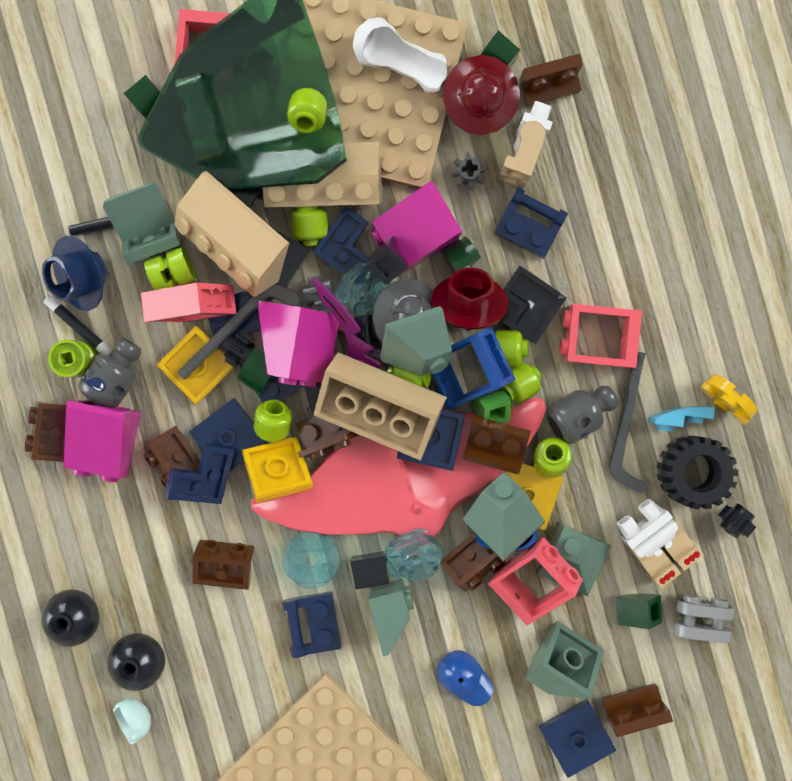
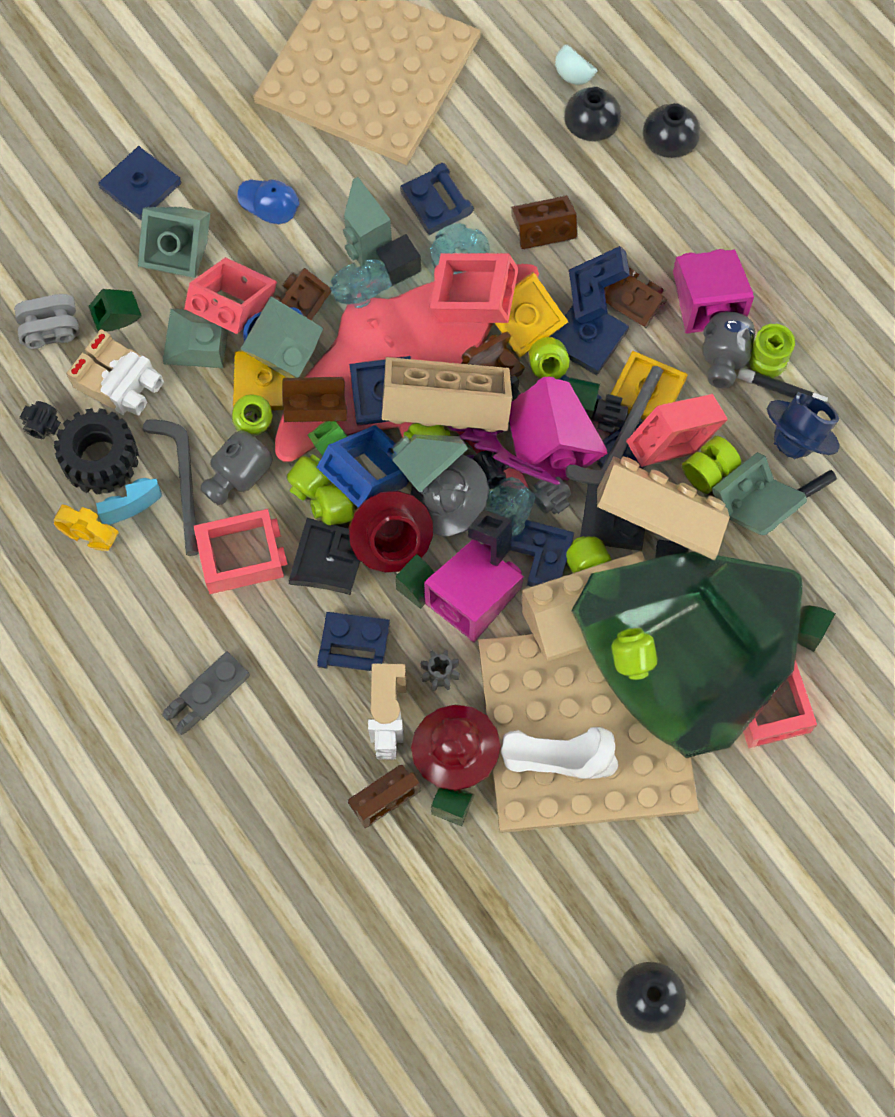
camera: 155 degrees right, 20 degrees down
(48, 432) = (767, 281): reddish brown bracket -> none
(291, 492) = (501, 294): none -> coral window
(636, 710) = (89, 219): reddish brown bracket -> none
(662, 224) = (207, 691): none -> dark grey hinge

